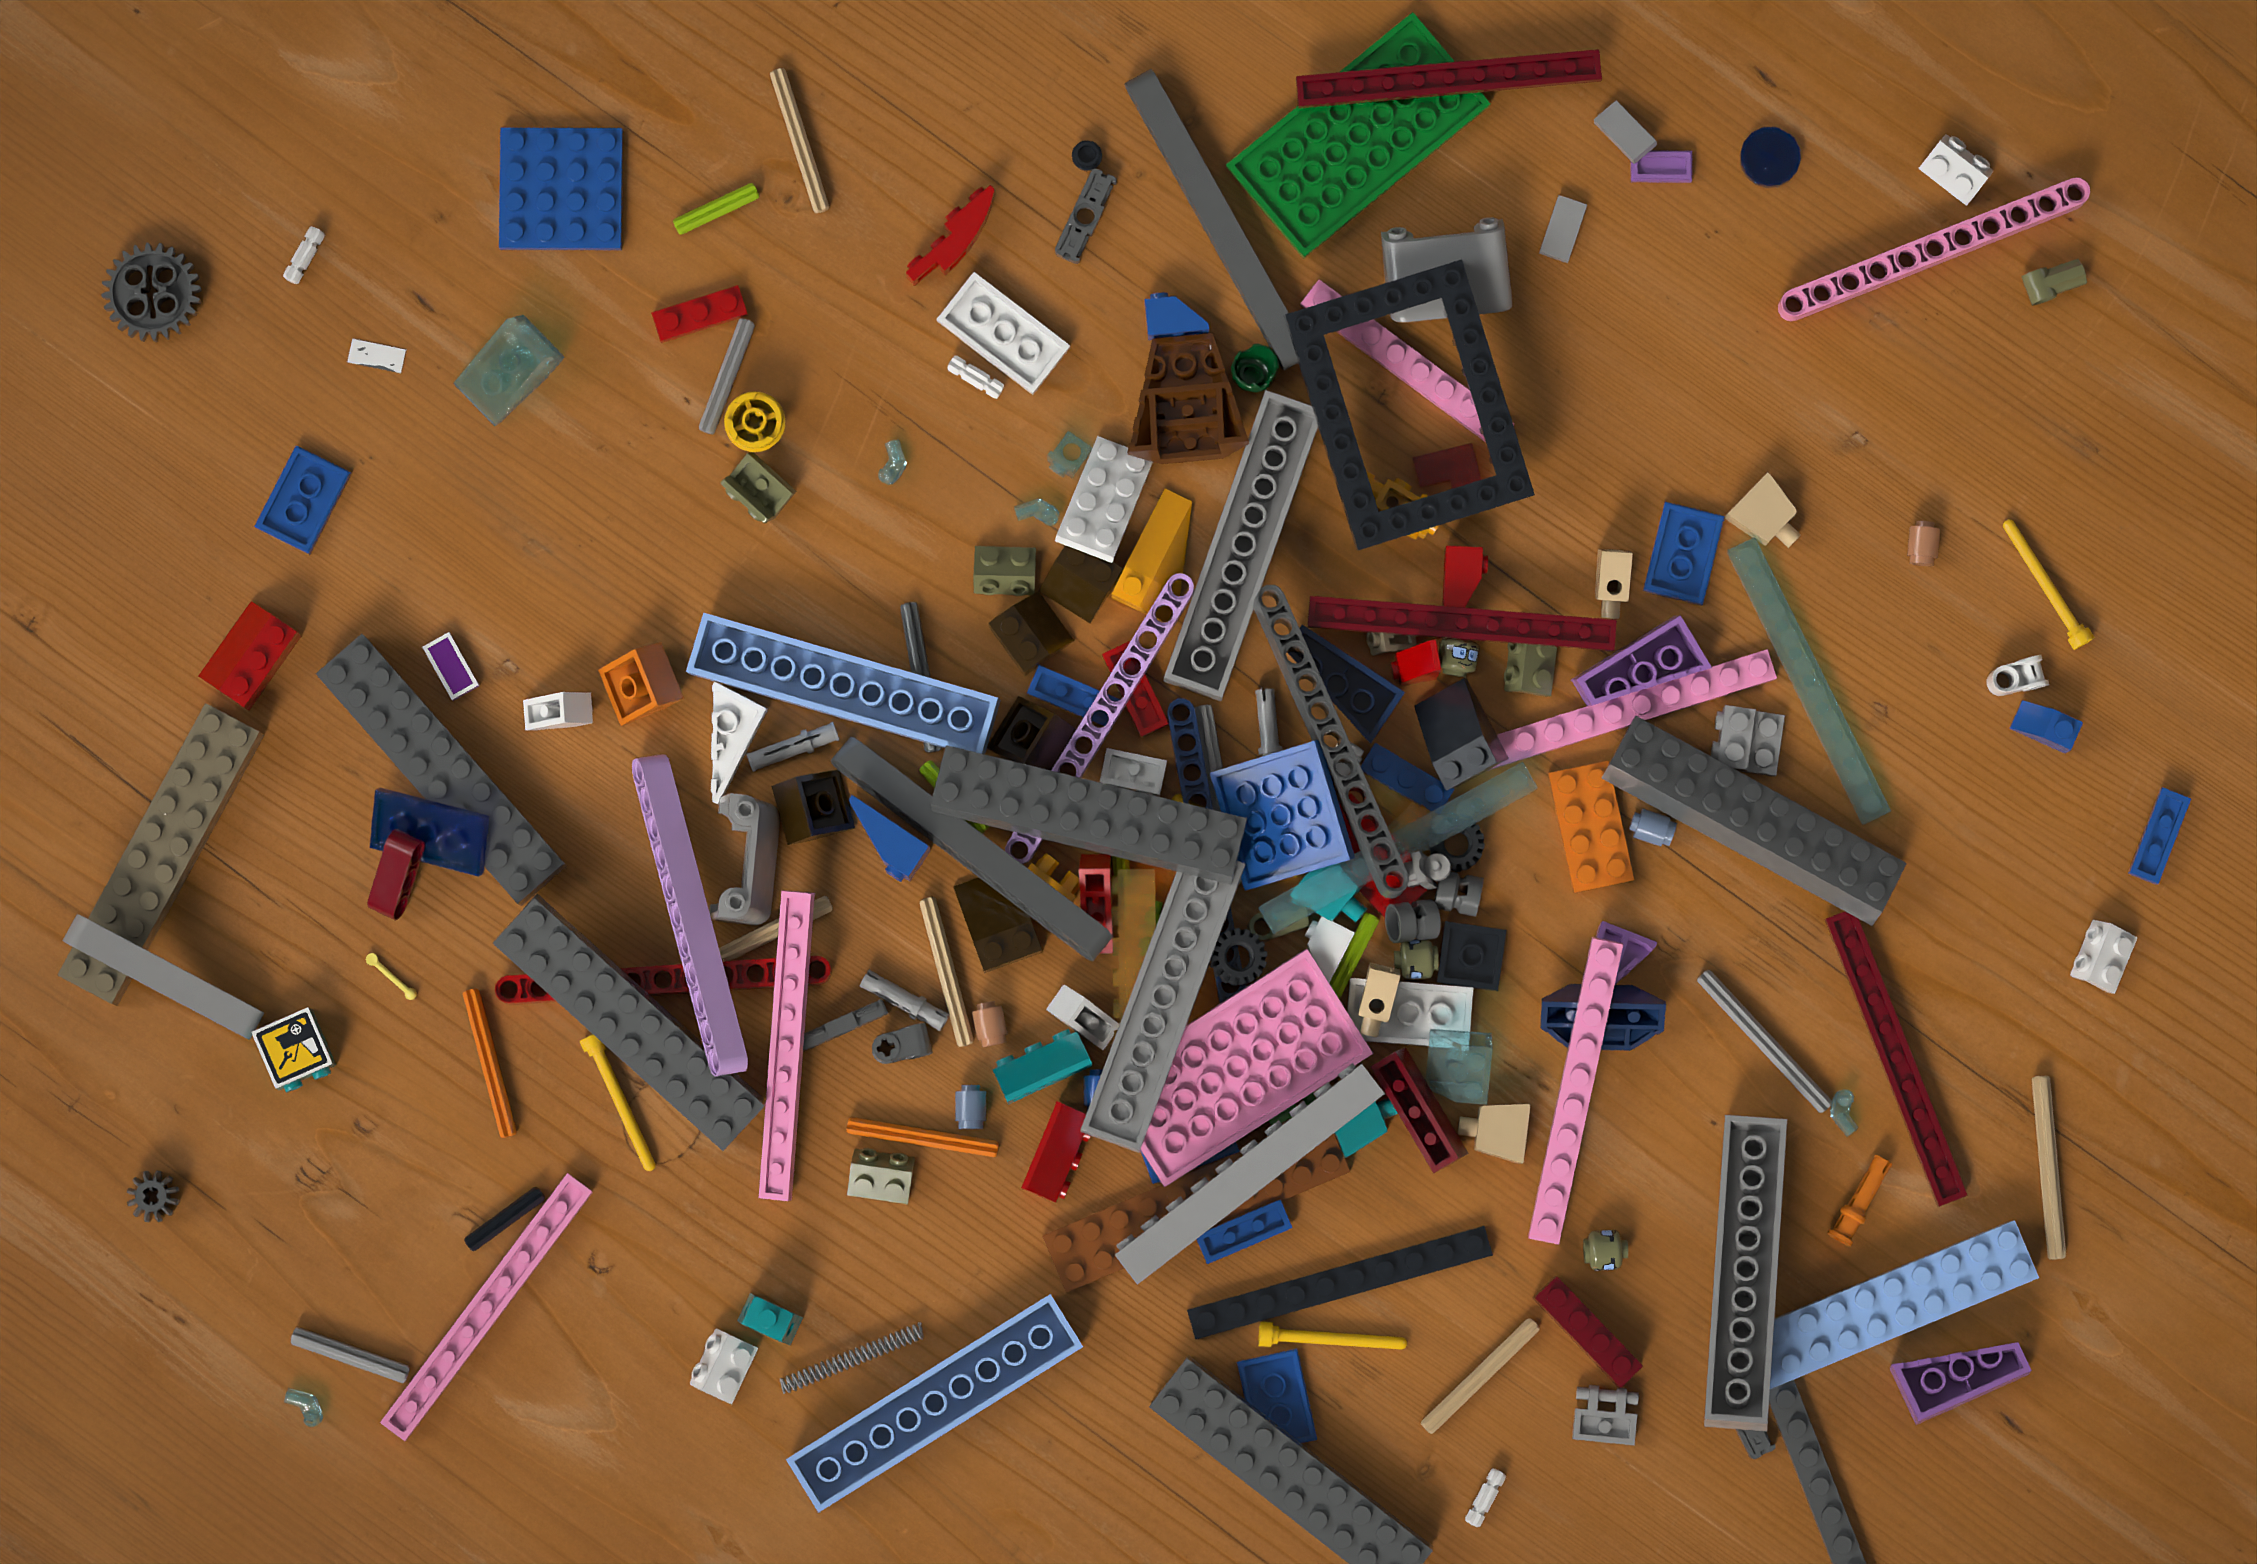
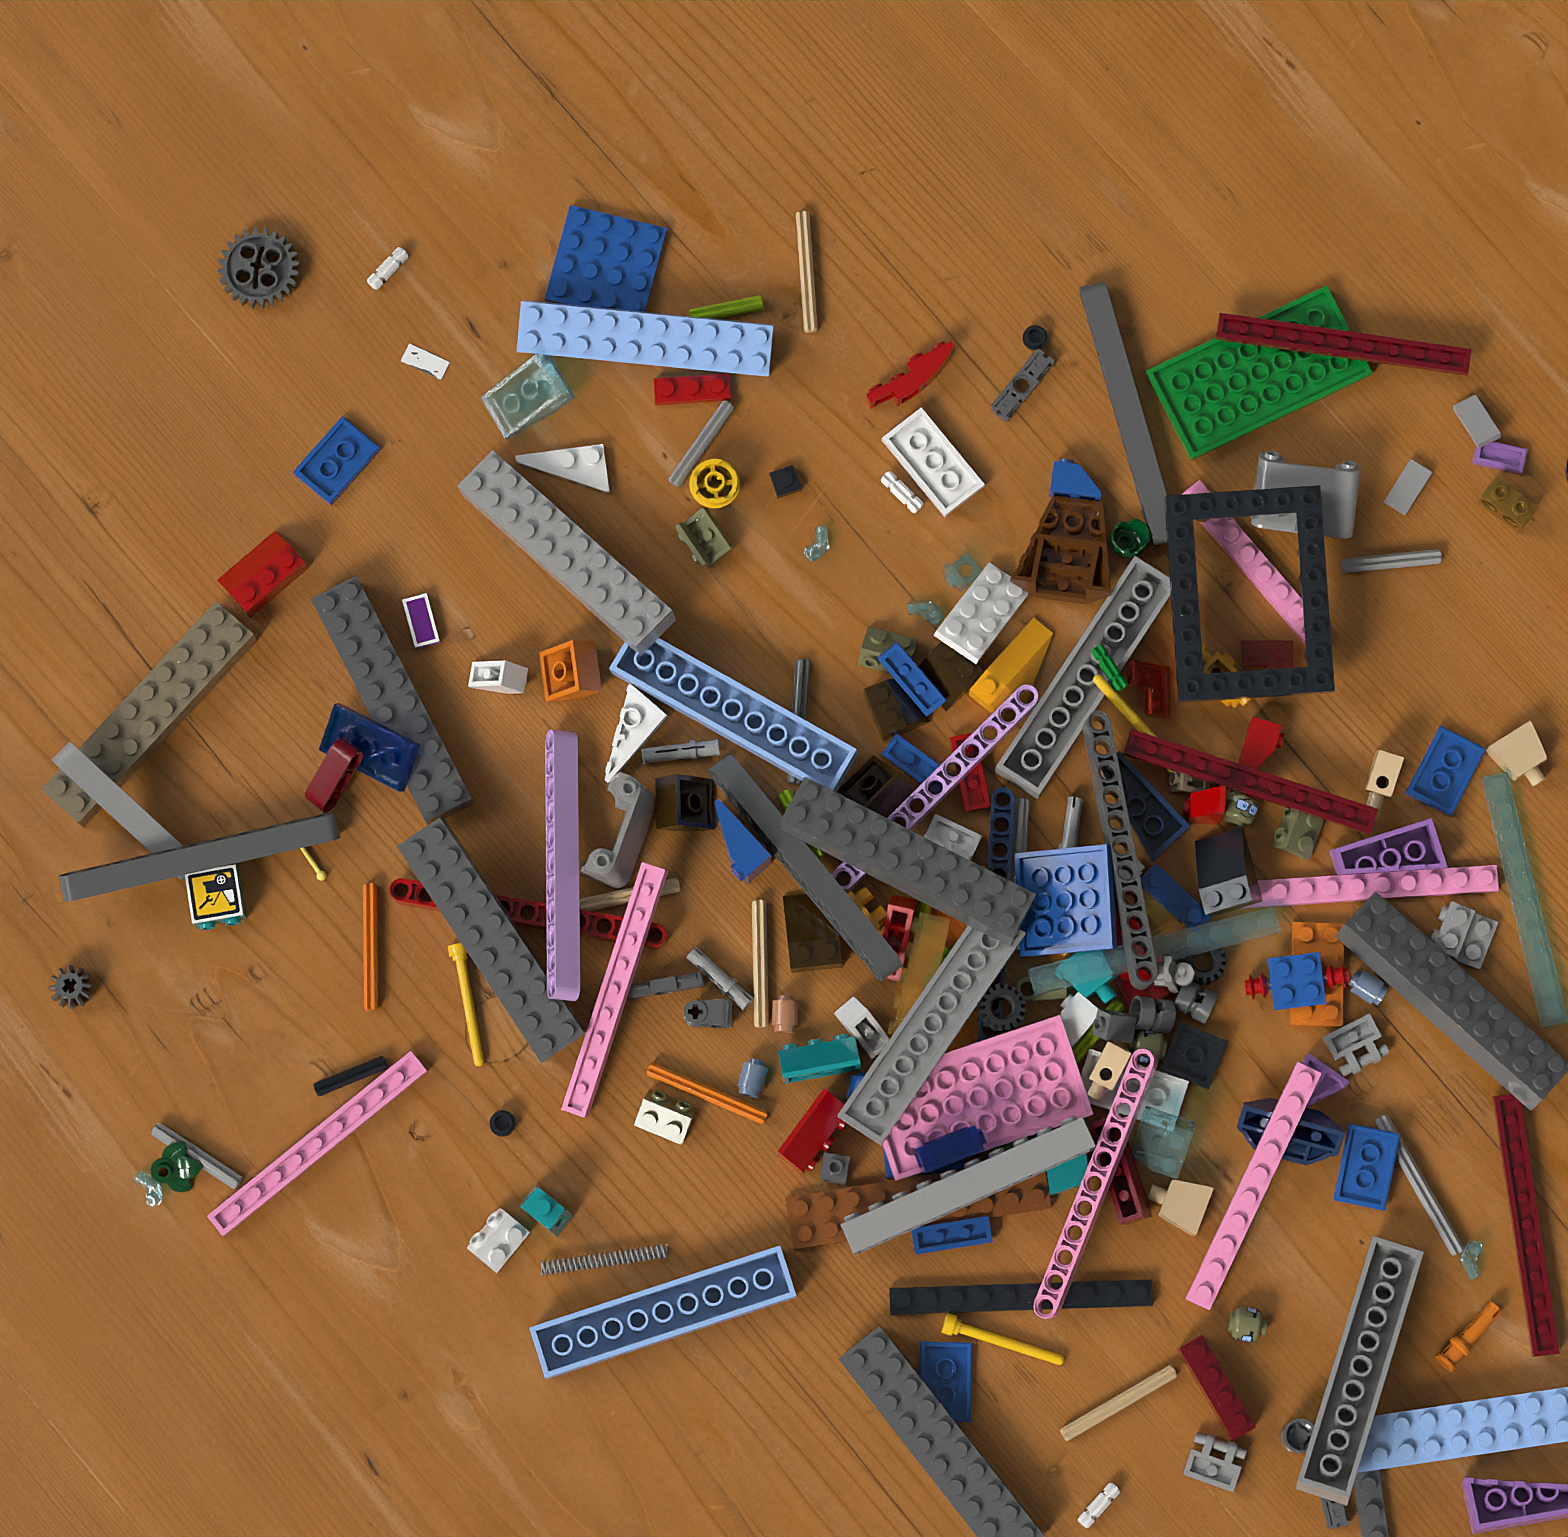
camera: 20 degrees right, 5 degrees down
(263, 1009) = (199, 856): none -> dark grey beam
(332, 1372) = (179, 1167): none -> dark green plate
(589, 436) = (579, 464): none -> white wing
(602, 546) = (566, 553): none -> light grey brick
(630, 267) = (645, 338): none -> light blue brick
(694, 1230) = (502, 1123): none -> black plate
(836, 397) = (785, 481): none -> black plate
(1041, 596) = (911, 678): none -> blue plate
(1091, 1188) = (834, 1168): none -> dark grey brick
(1218, 1136) = (949, 1148): none -> clear blue window
(1267, 529) = (1109, 667): none -> green axle
(1294, 571) = (1122, 706): none -> yellow piece
(1324, 531) = (1155, 682): none -> clear red plate
(1373, 945) = (1114, 1025): none -> dark grey brick
(1385, 1146) = (1085, 1193): none -> bright pink beam
(1563, 321) = (1389, 561): none -> light grey axle
(1570, 841) = (1297, 981): none -> blue plate
(1649, 890) = (1352, 1037): none -> light grey plate
(1683, 222) = (1507, 504): none -> pearl gold brick
(1691, 1363) = (1296, 1435): none -> dark grey wheel
(1699, 1036) = (1366, 1167): none -> blue tile

